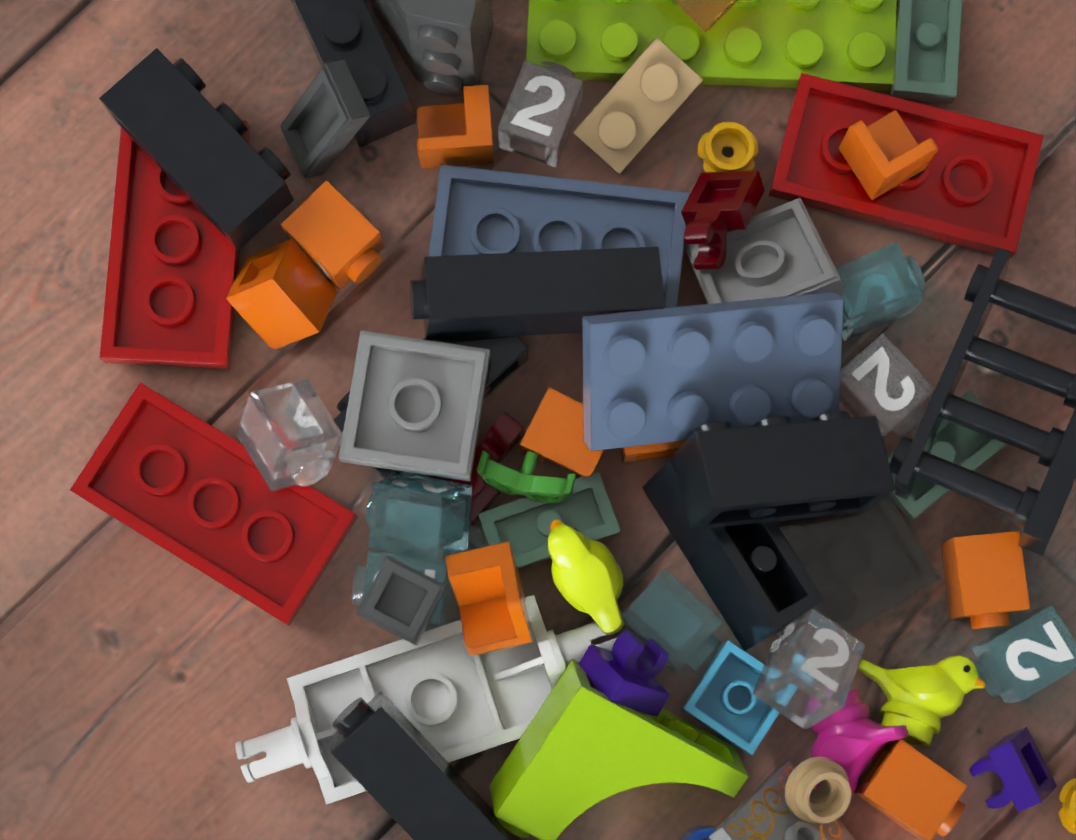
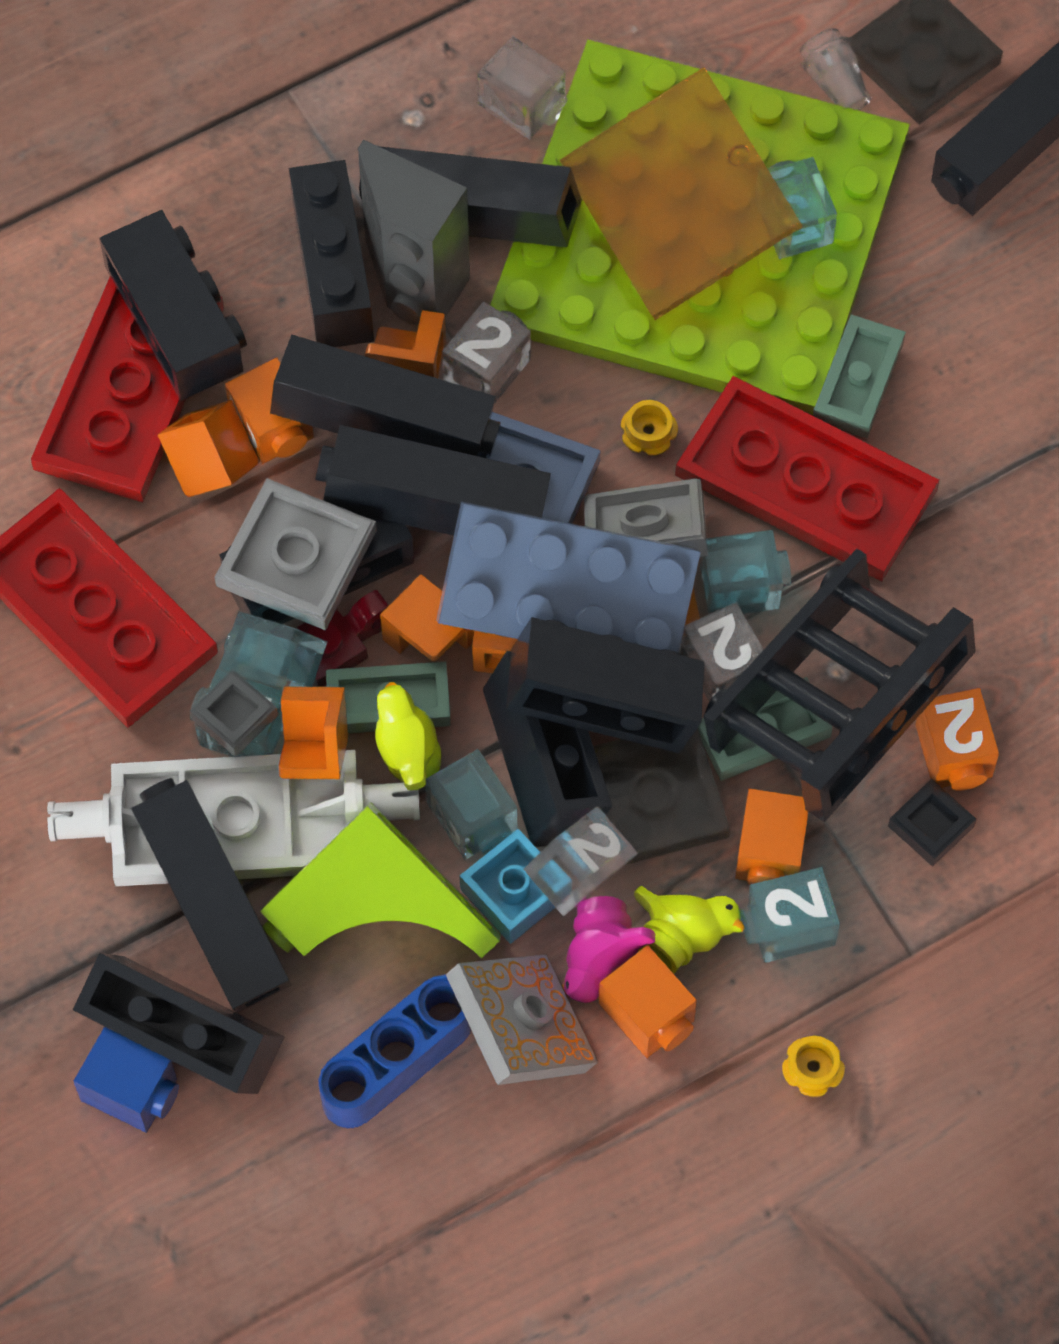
camera: 15 degrees right, 15 degrees down
(289, 435) = (177, 558): clear brick -> none
(325, 119) = (291, 307): dark grey tile -> none
(458, 209) = (339, 388): none -> black brick
(512, 482) = (386, 656): bright green piece -> none
(629, 672) = (416, 827): dark purple tile -> none
(638, 105) = (576, 368): tan plate -> none
(717, 206) = (622, 468): dark red plate -> none
(828, 801) = (577, 970): tan plate -> none
(885, 153) = (784, 455): orange panel -> none
(1021, 769) = (755, 1012): dark purple tile -> none

